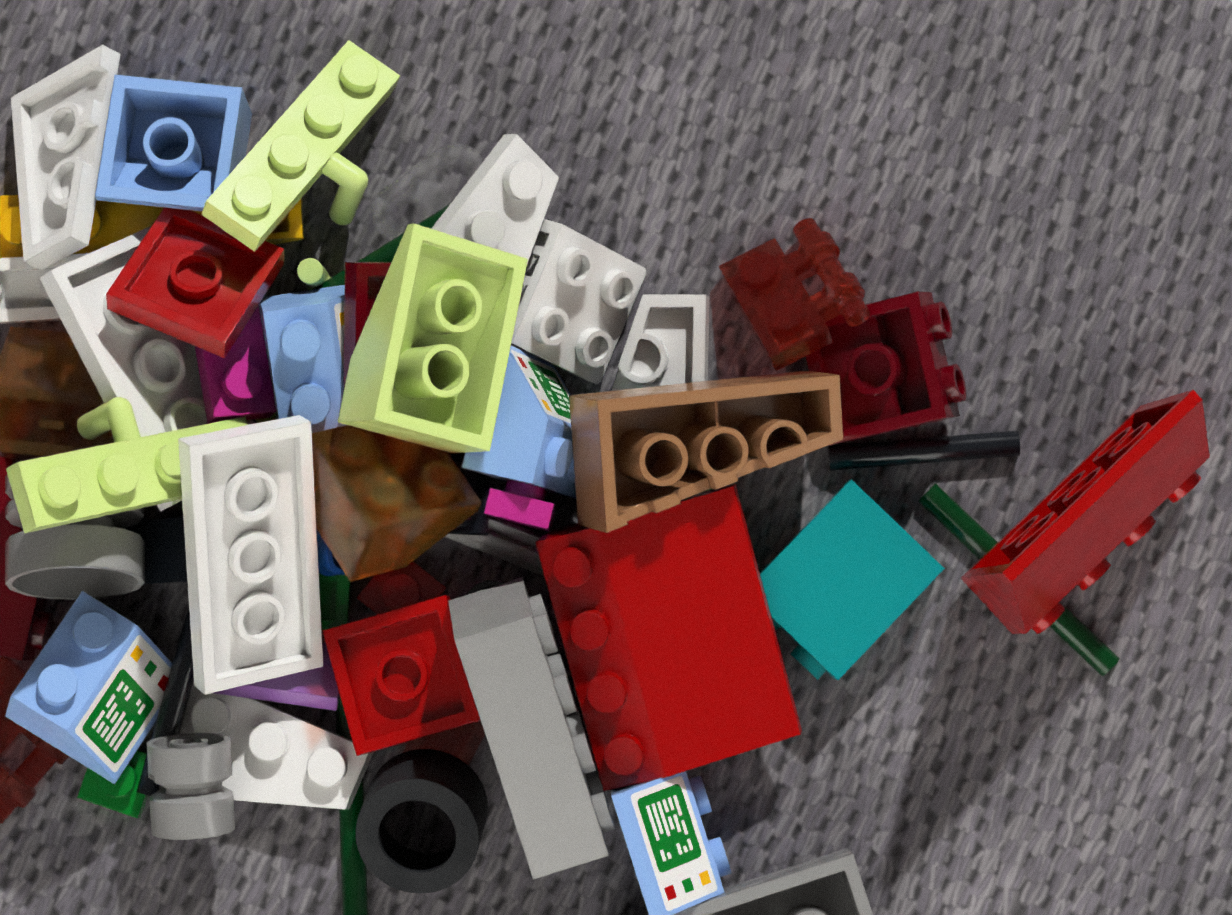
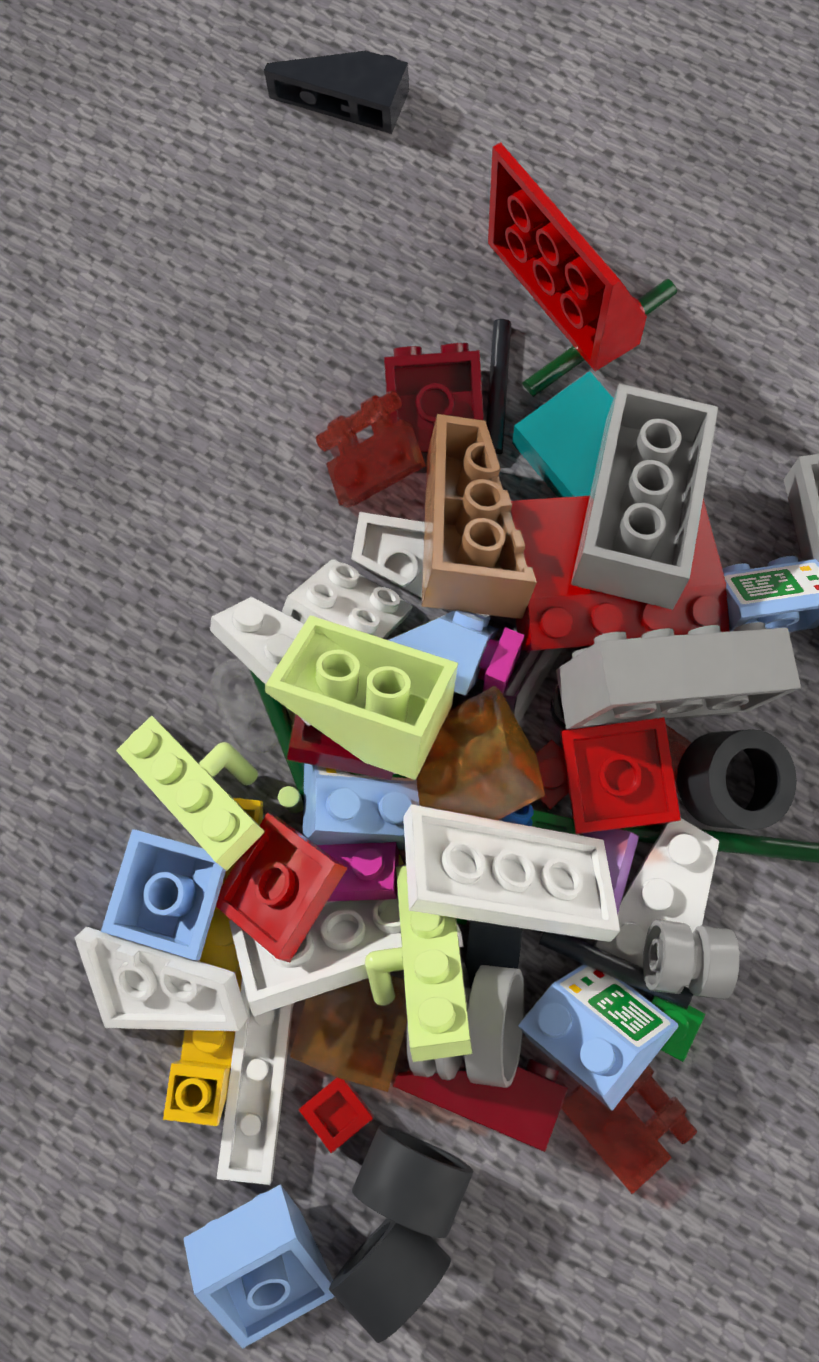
camera: 70 degrees left, 10 degrees down
(752, 657) = (646, 497): none -> light grey brick

